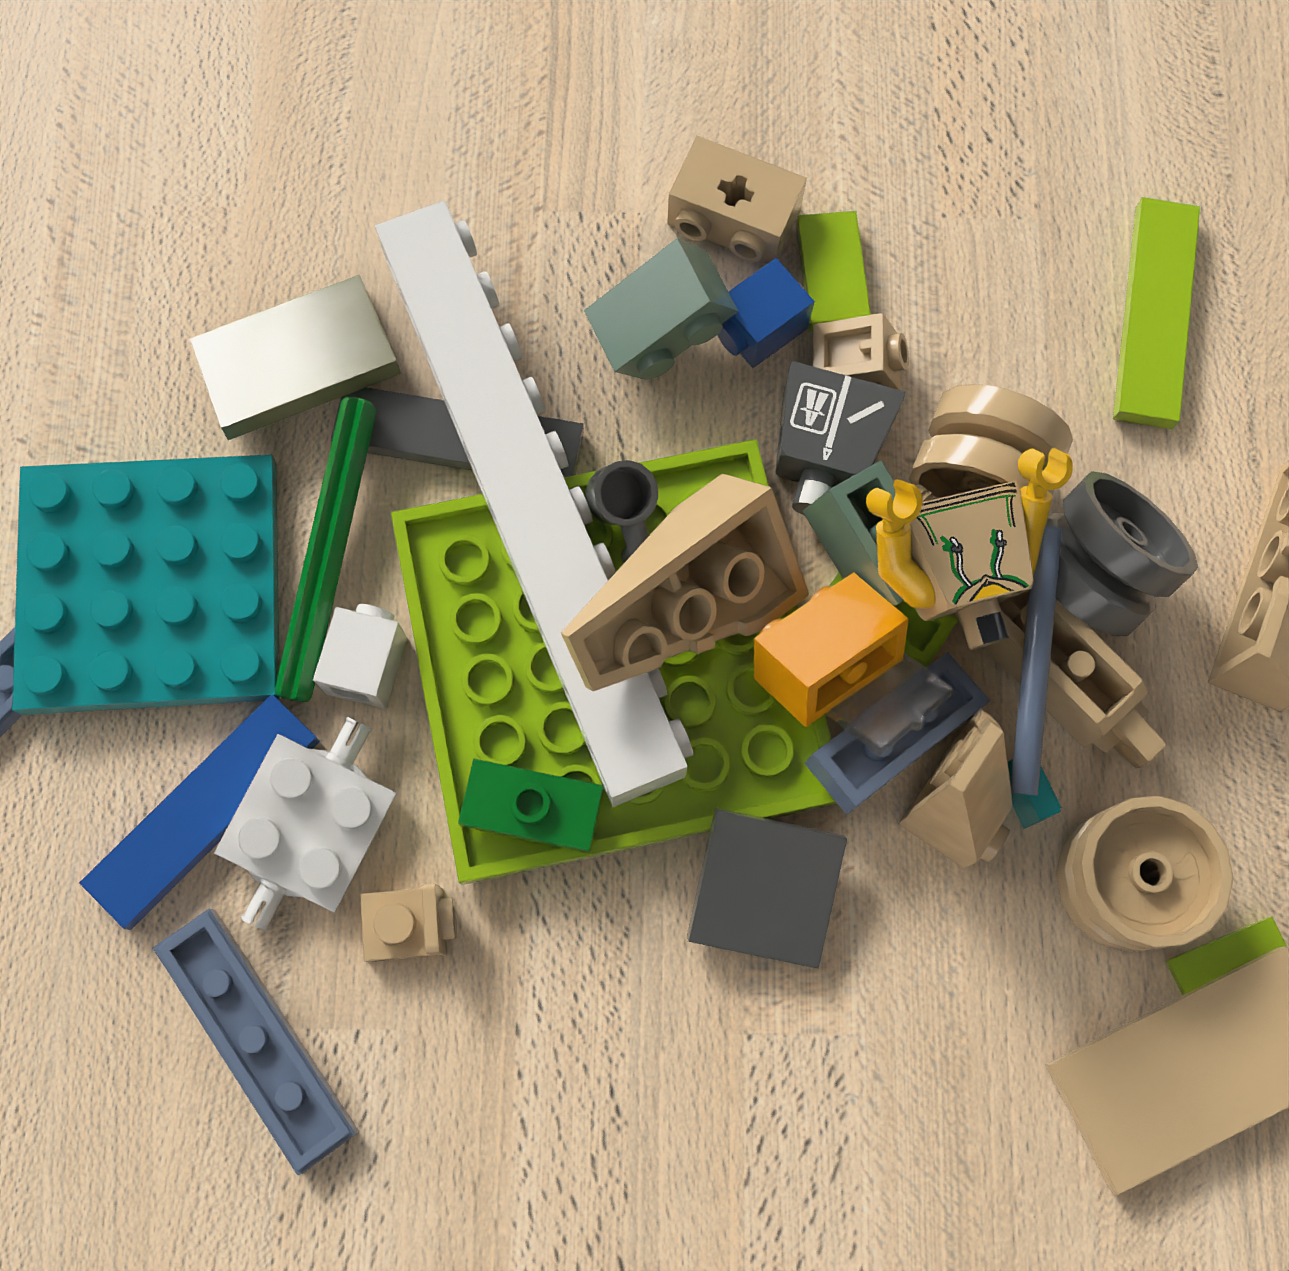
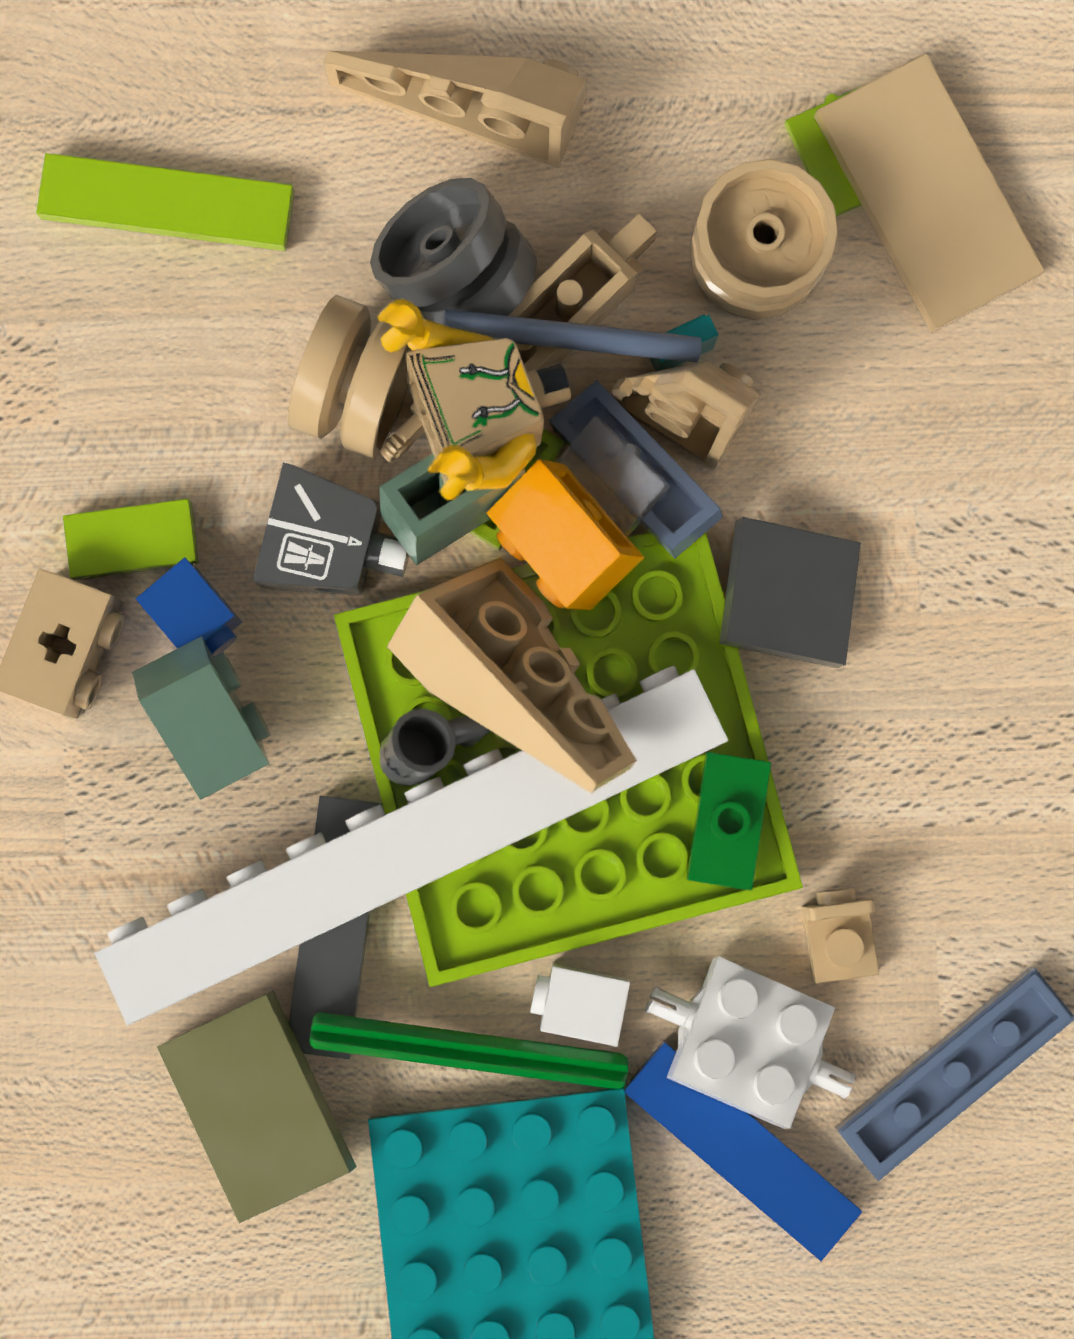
camera: 95 degrees left, 10 degrees up
(862, 349) = (230, 510): tan bracket -> none

